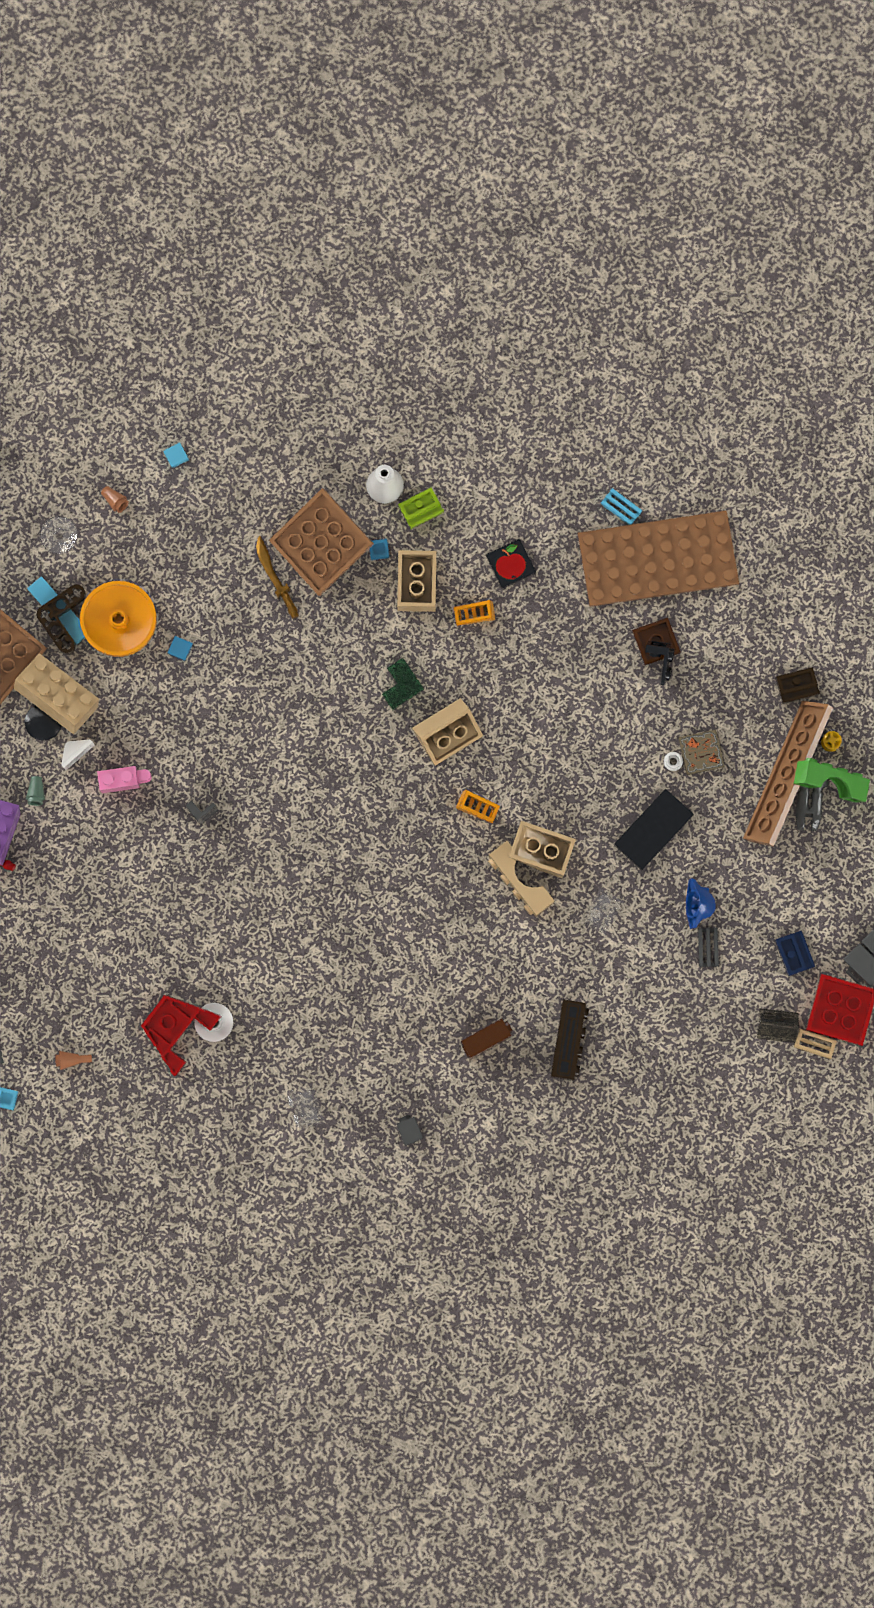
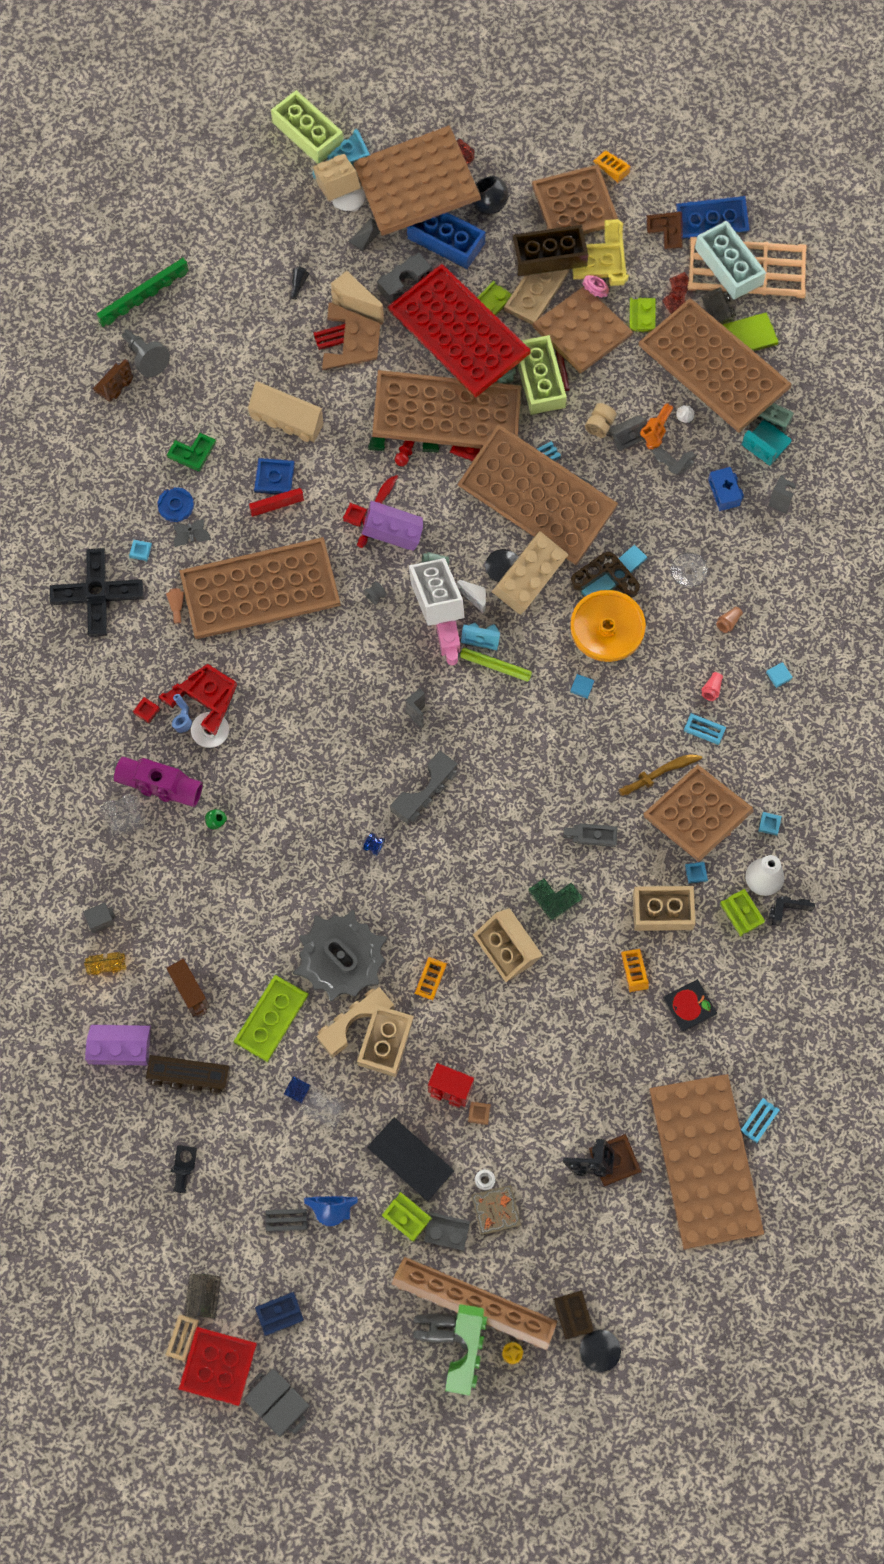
camera: 90 degrees right, 10 degrees down
(57, 972) = (259, 588): none -> medium nougat plate
(68, 852) = (375, 592): none -> dark grey wheel
(69, 1142) = (96, 603): none -> black piece
(77, 787) = (436, 591): none -> white brick
(124, 741) = (481, 637): none -> medium azure tile
(152, 733) = (496, 664): none -> lime axle
(187, 520) = (712, 687): none -> coral cone
(189, 1088) = (146, 710): none -> red plate
(199, 1051) = (181, 722): none -> medium blue plate
(224, 545) = (702, 735): none -> medium azure tile
(267, 791) = (410, 804): none -> dark grey arch
(274, 1055) = (158, 780): none -> magenta brick
(309, 1016) = (215, 819): none -> green piece
(331, 476) = (769, 823): none -> medium azure tile
(338, 645) = (592, 834): none -> dark grey hinge
(341, 858) = (374, 844): none -> clear blue wheel
(421, 475) = (776, 911): none -> black bracket
(443, 879) = (355, 945): none -> dark grey piece
(455, 1115) = (97, 964): none -> clear yellow hinge
(513, 961) = (271, 1018): none -> lime tile
(537, 1108) = (118, 1045): none -> medium lavender slope
(585, 935) = (297, 1090): none -> clear blue plate
(586, 788) = (450, 1085): none -> red brick
(610, 764) = (479, 1113): none -> medium nougat tile
(660, 1044) = (183, 1169): none -> black bracket
(707, 834) = (407, 1216): none -> lime plate
(720, 798) = (447, 1231): none -> dark grey plate
(829, 663) = (600, 1350): none -> black dish

